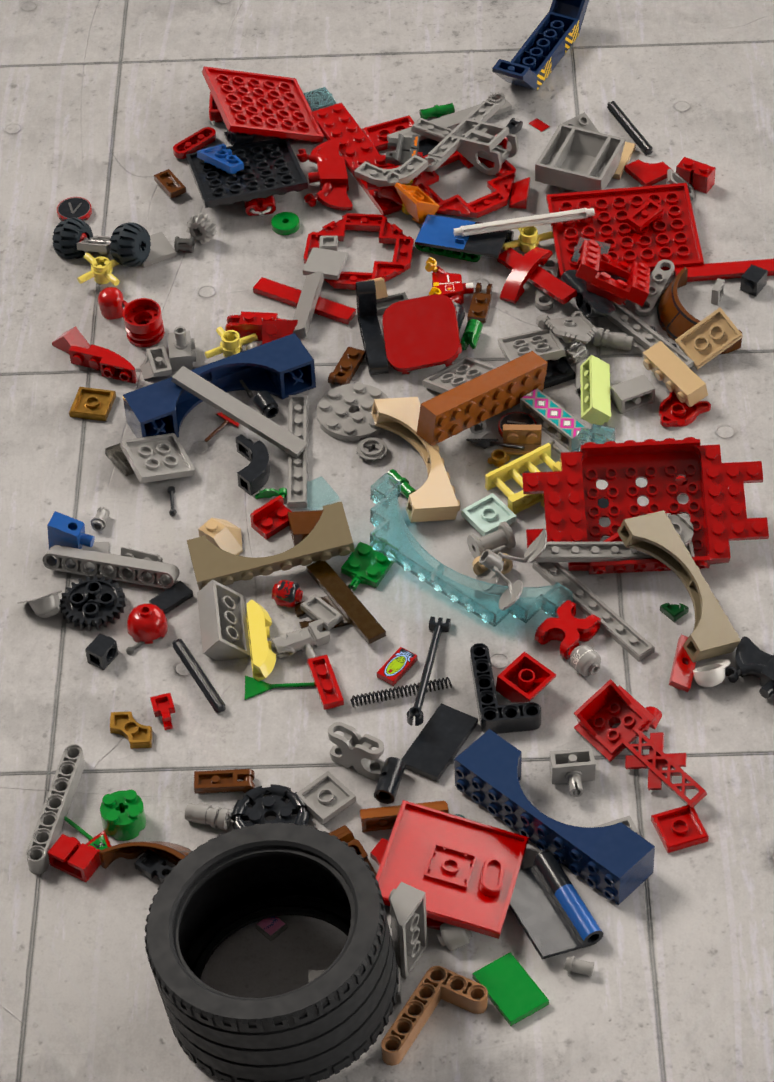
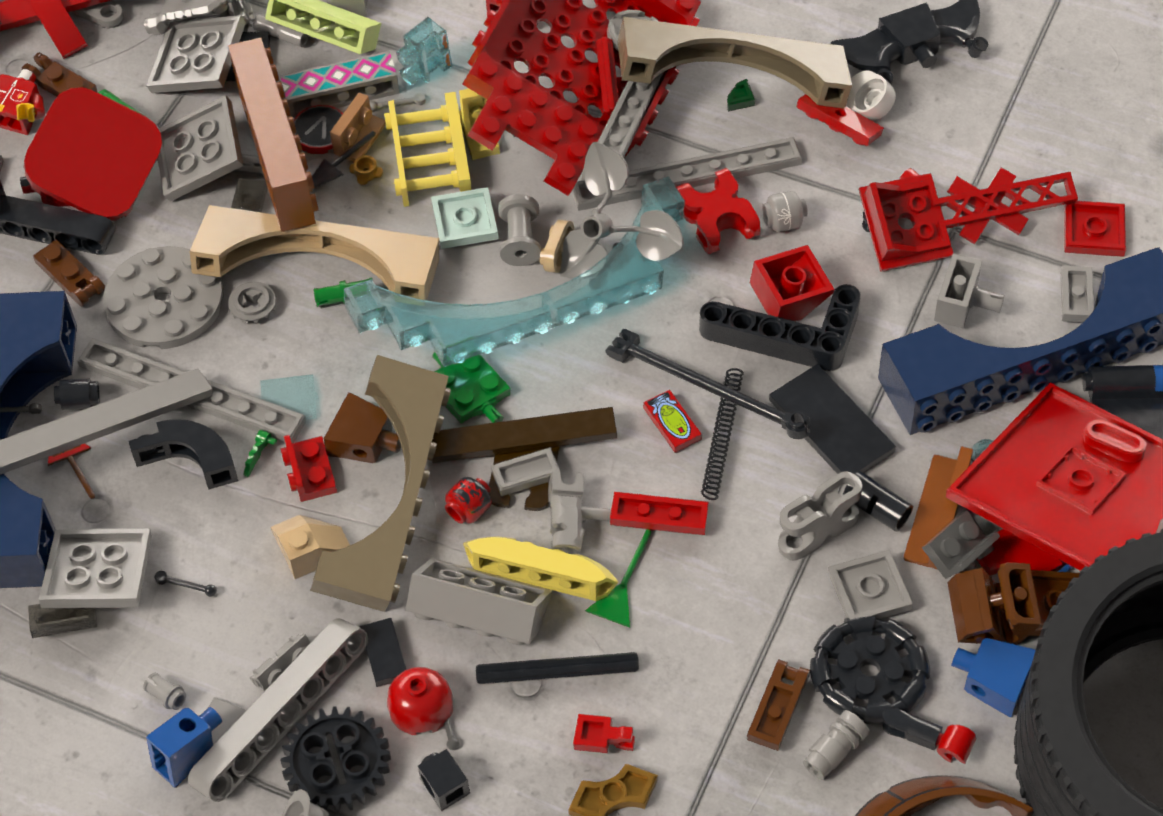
camera: 65 degrees left, 10 degrees up
(370, 822) = (959, 545): none -> dark grey bracket

